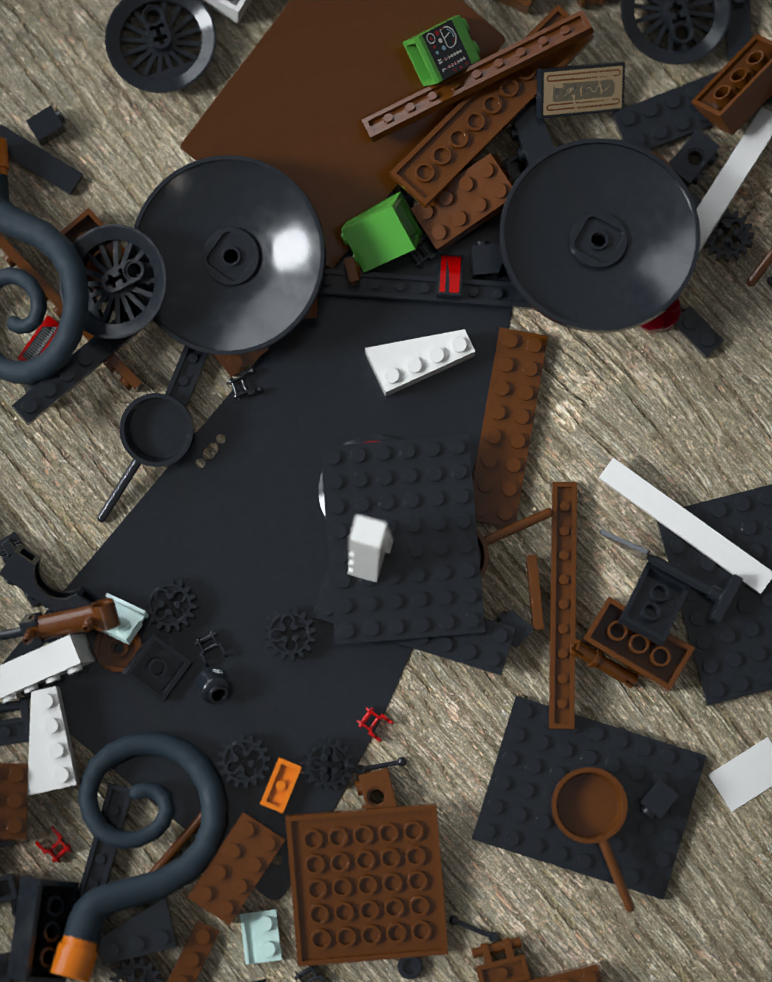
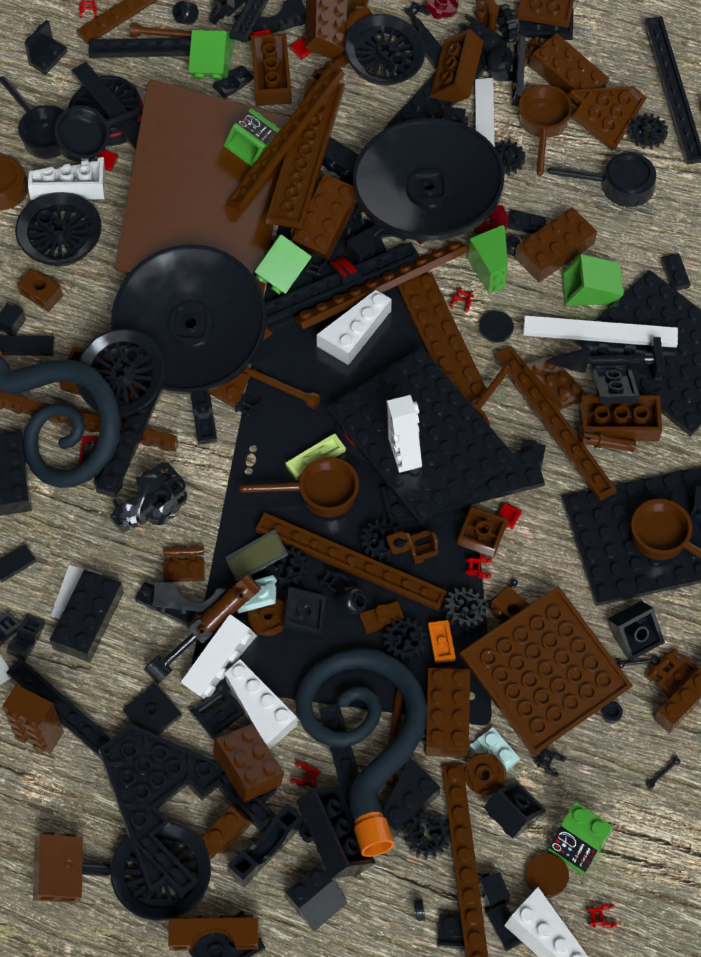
camera: 30 degrees left, 20 degrees down
(64, 541) = (184, 570): none -> reddish brown plate
(73, 436) = (155, 499): none -> black animal
(93, 91) = (45, 298): none -> reddish brown brick
(145, 573) = (256, 555): none -> olive sticker
(154, 433) = (206, 460): black piece -> none
(224, 958) = (475, 774): none -> reddish brown plate
(237, 719) = (381, 617): none -> reddish brown tile
(242, 637) = (353, 562): none -> reddish brown plate
(264, 537) = (325, 484): none -> reddish brown piece
(280, 490) = (327, 448): none -> yellowish green plate
(315, 417) = (311, 399): none -> reddish brown piece
(316, 663) = (417, 553): none -> reddish brown piece
(352, 271) = (277, 295): reddish brown tile -> none
(385, 686) = (482, 520): none -> reddish brown brick
(444, 682) = (510, 513): none -> red tile
(461, 318) = (385, 282): none -> reddish brown plate
(493, 894) = (636, 630): none -> black slope
(534, 593) = (529, 425): reddish brown tile -> none
(566, 396) = (457, 297): none -> red piece
(577, 447) = (496, 326): none -> black piece
(580, 89) = (355, 118): tile -> none
(595, 557) = (554, 382): none -> reddish brown plate
(620, 362) = (489, 258): none -> bright green slope
(664, 353) = (511, 243): none -> black piece
(710, 384) = (555, 244): none -> reddish brown brick
(720, 457) = (592, 282): none -> bright green slope

